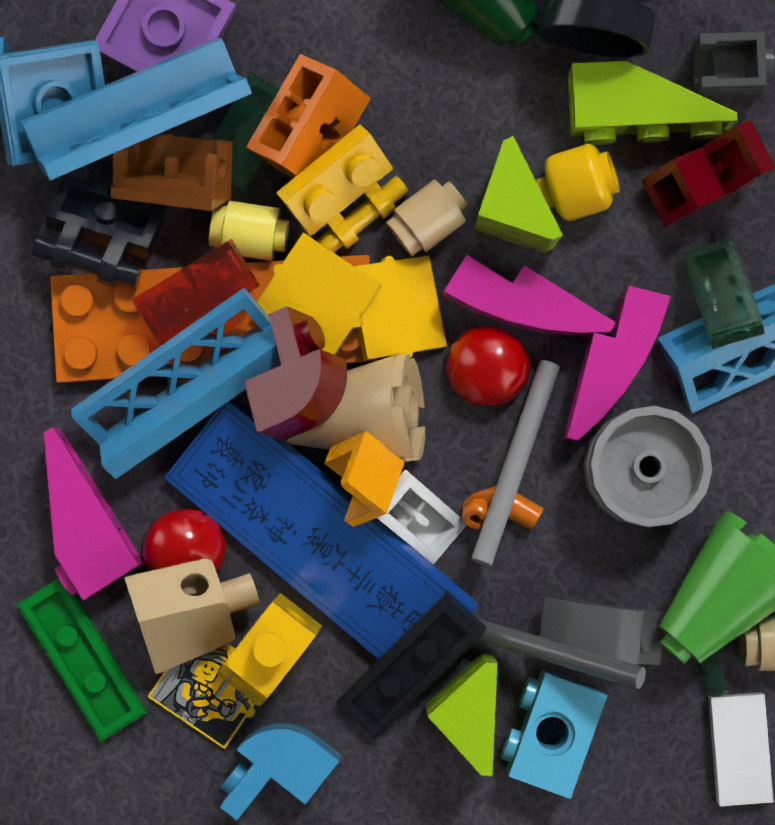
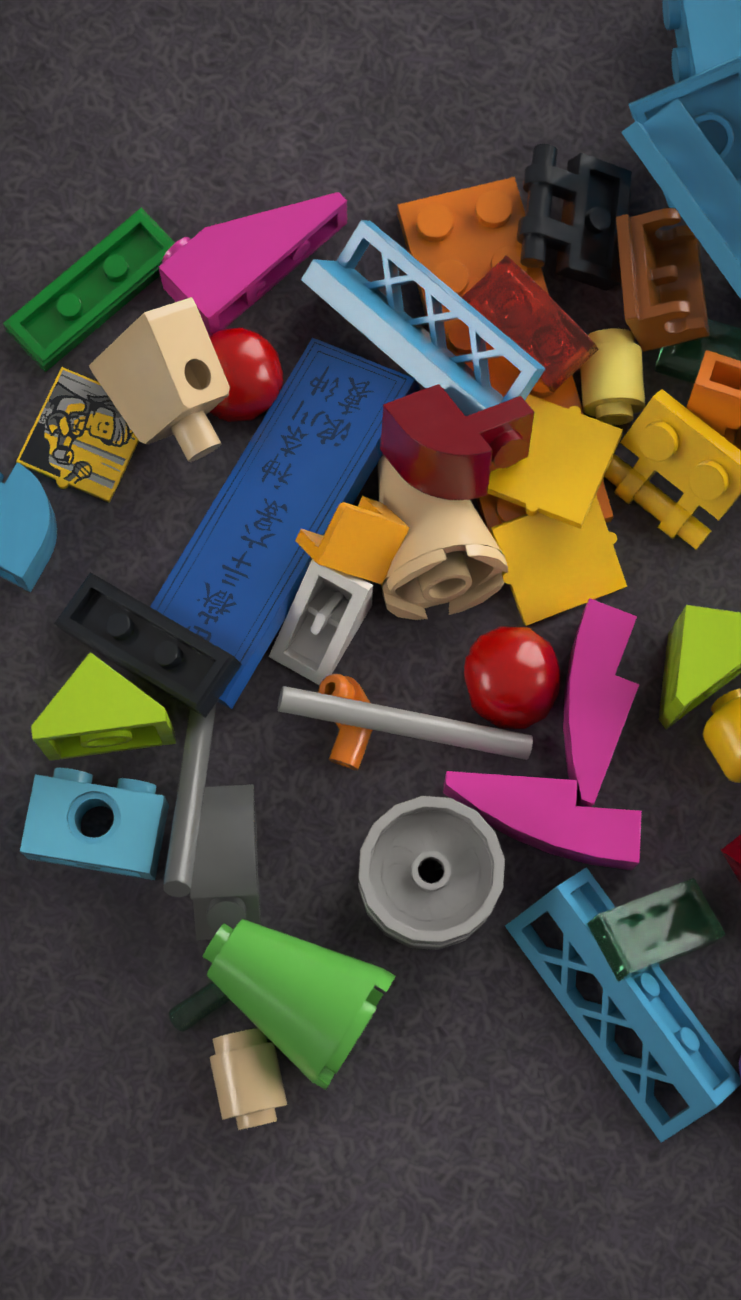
camera: 75 degrees right, 10 degrees down
(269, 649) = (141, 481): yellow torso -> none
(428, 217) = (670, 571): tan brick -> none
(740, 749) = (111, 1057): white tile -> none

